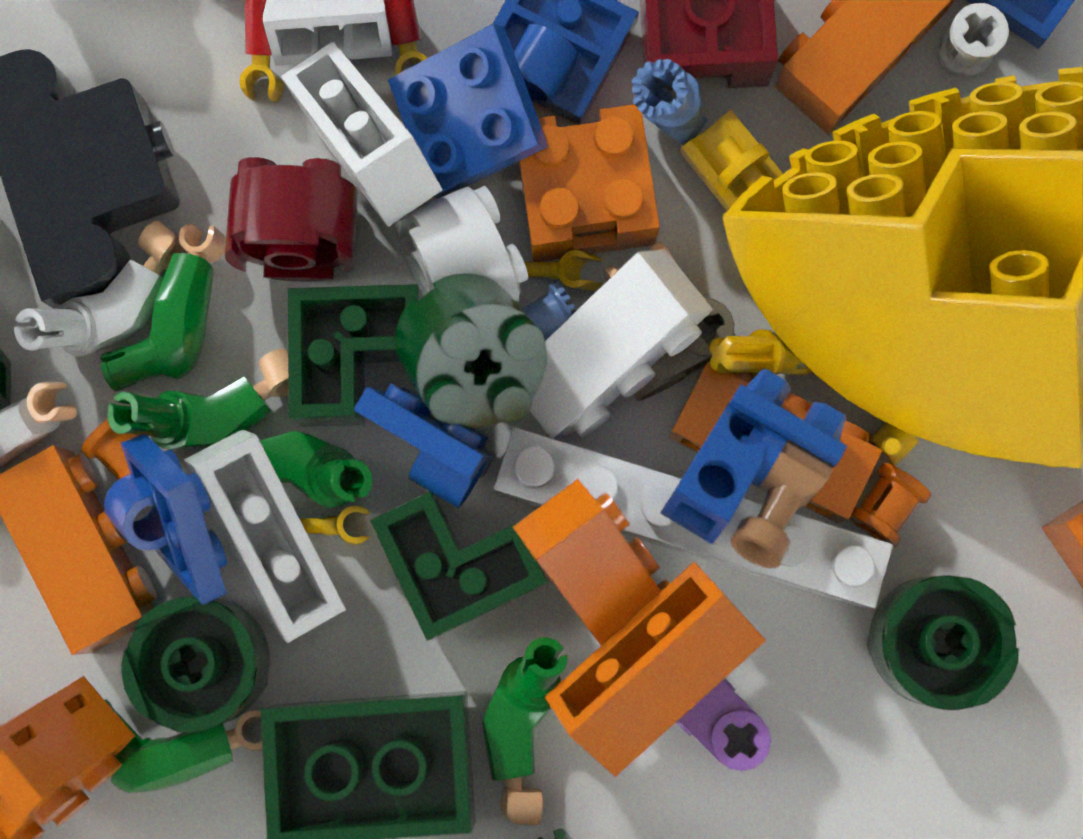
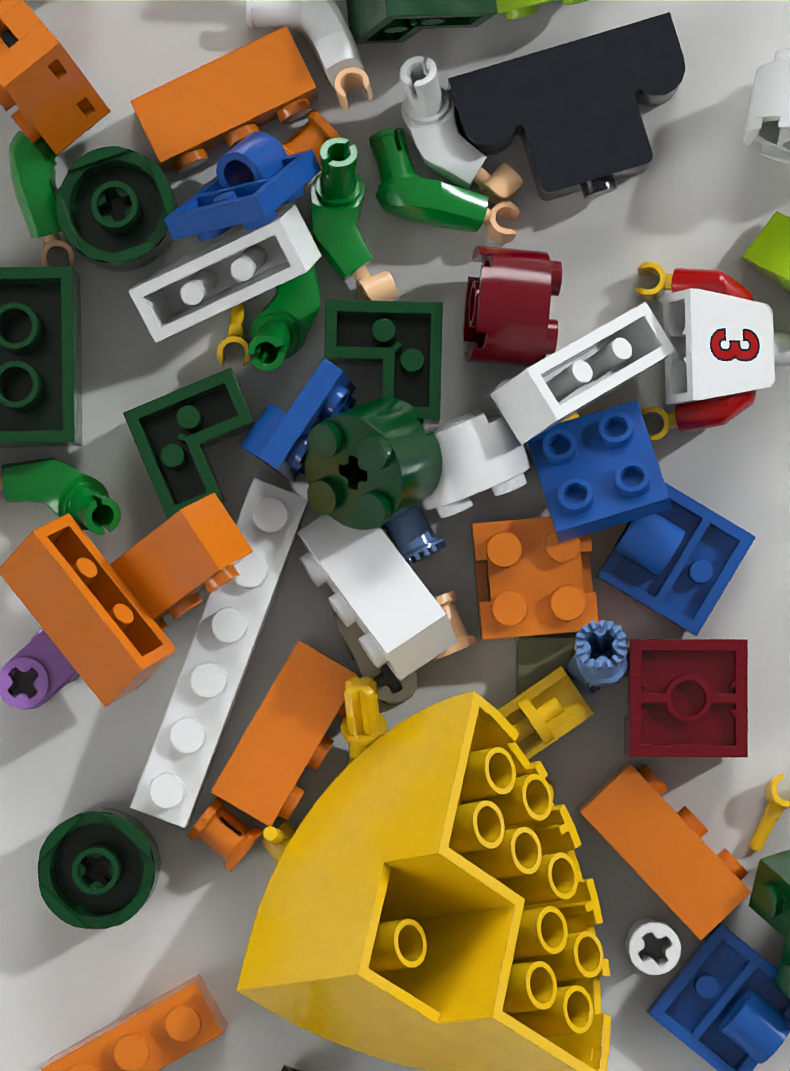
camera: 90 degrees right, 5 degrees up
(566, 270) = (457, 555): yellow hand -> none
(674, 178) = (539, 657): none -> olive tile
(760, 447) = (272, 715): blue hips -> none

